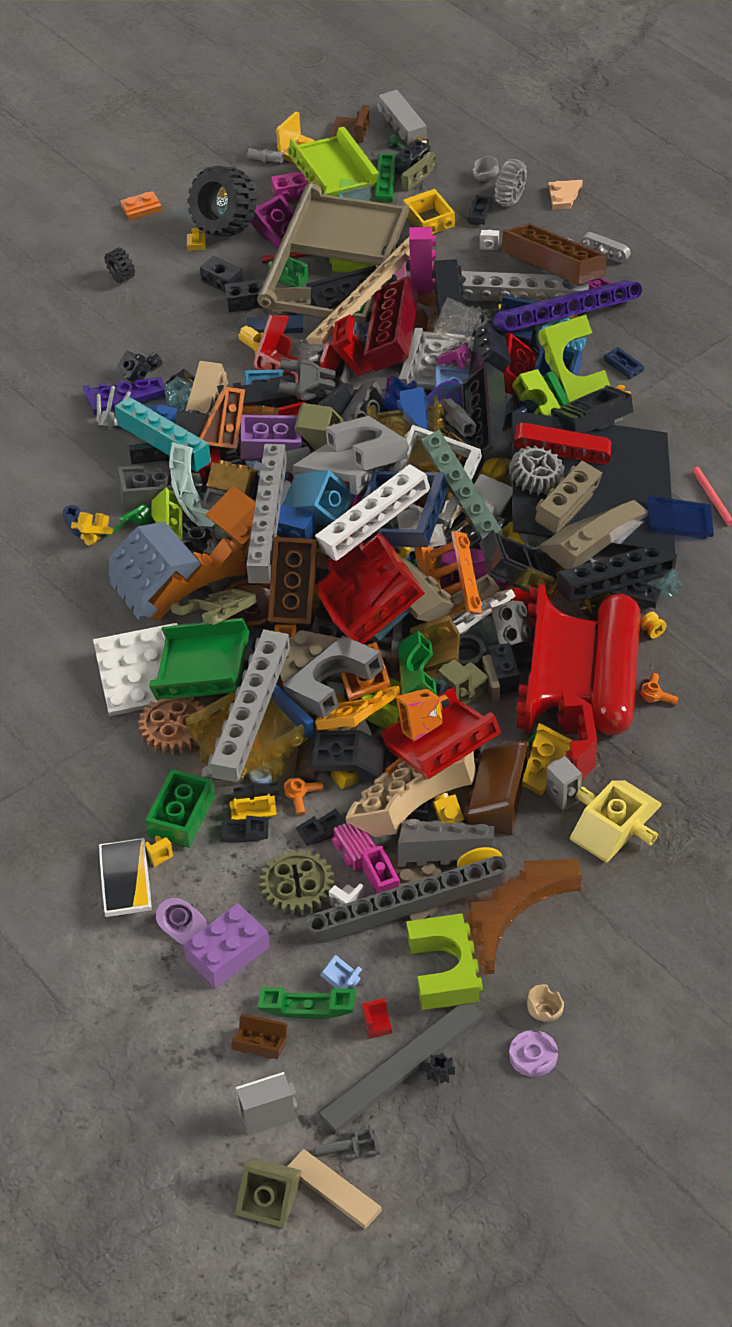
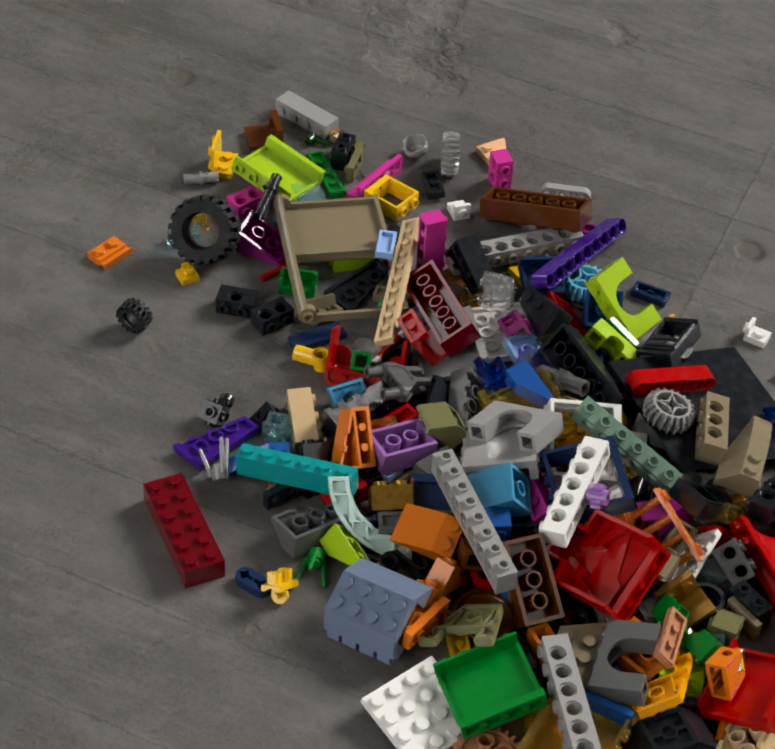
camera: 30 degrees left, 5 degrees down
(43, 460) = (184, 530): none -> dark red brick
(180, 594) = (424, 622): none -> orange wing
(291, 352) = (360, 360): none -> green brick
(304, 178) = (269, 193): none -> black pin
(381, 252) = (386, 244): none -> light blue tile
(384, 667) = (670, 637): none -> nougat tile
(387, 521) = (597, 496): none -> medium lavender gear
(444, 186) = (390, 167): none -> dark pink fence
(550, 208) = (500, 168): none -> dark pink brick
(701, 427) = (755, 335): none -> white bracket

